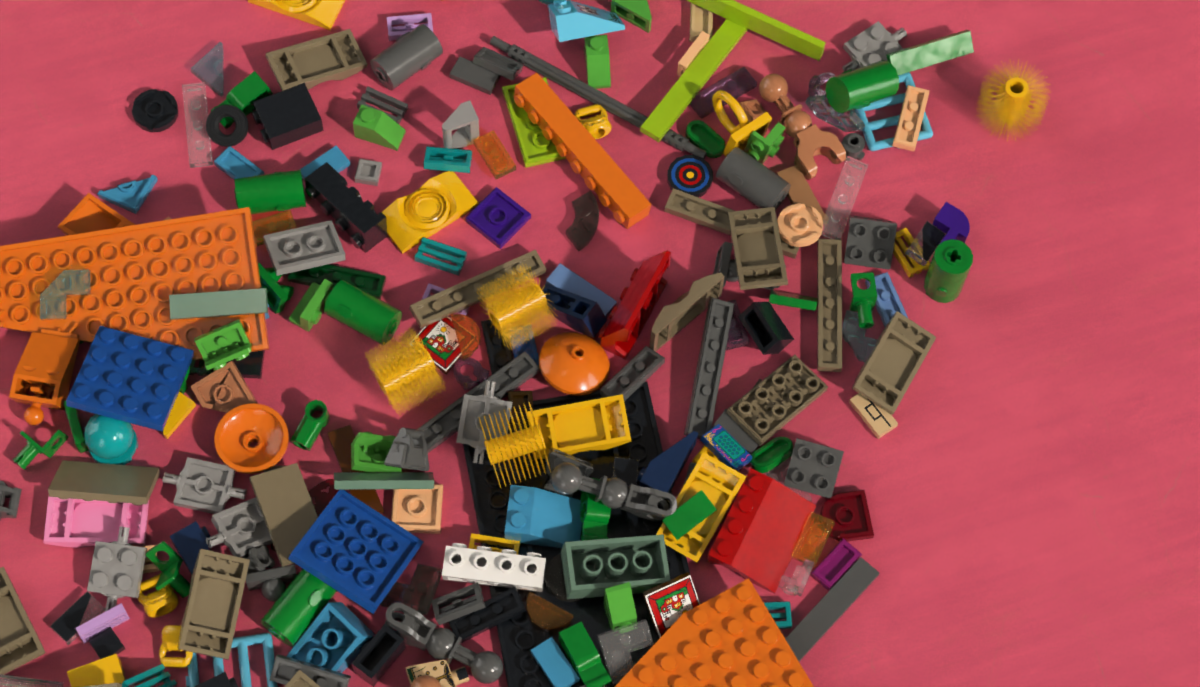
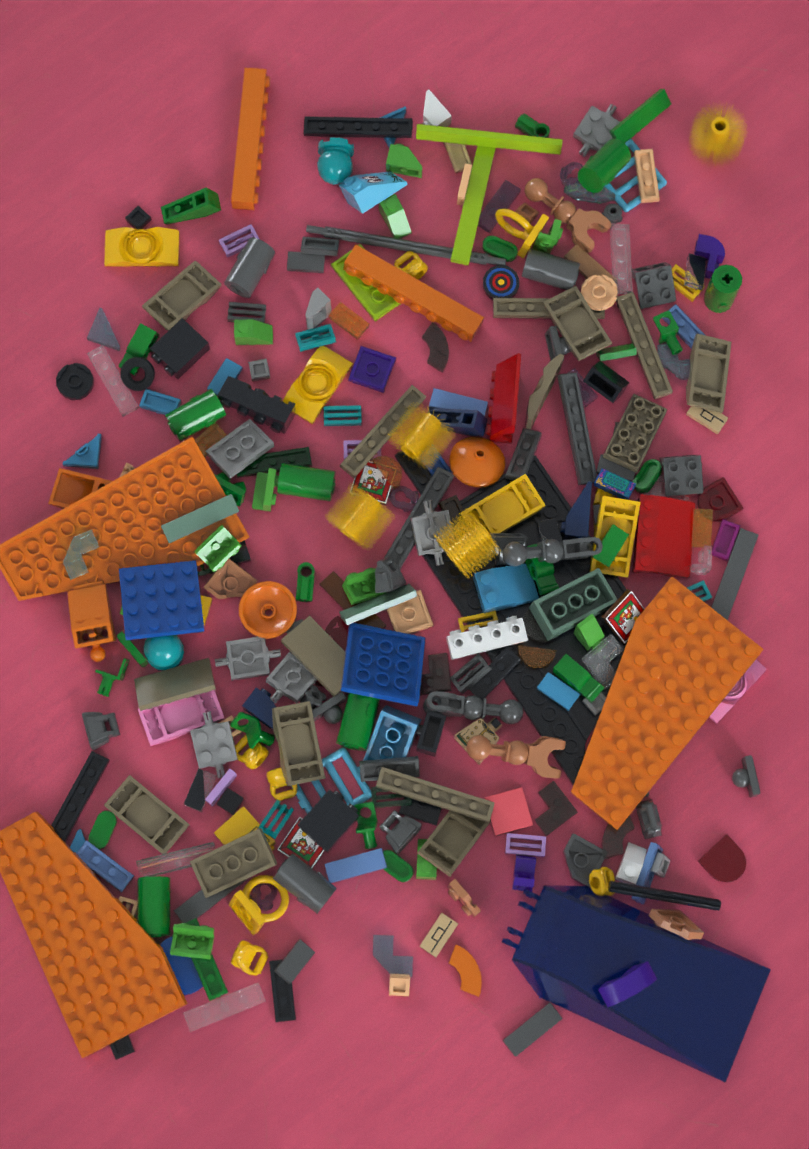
camera: 20 degrees left, 10 degrees up
(795, 17) = (531, 127): none -> green piece

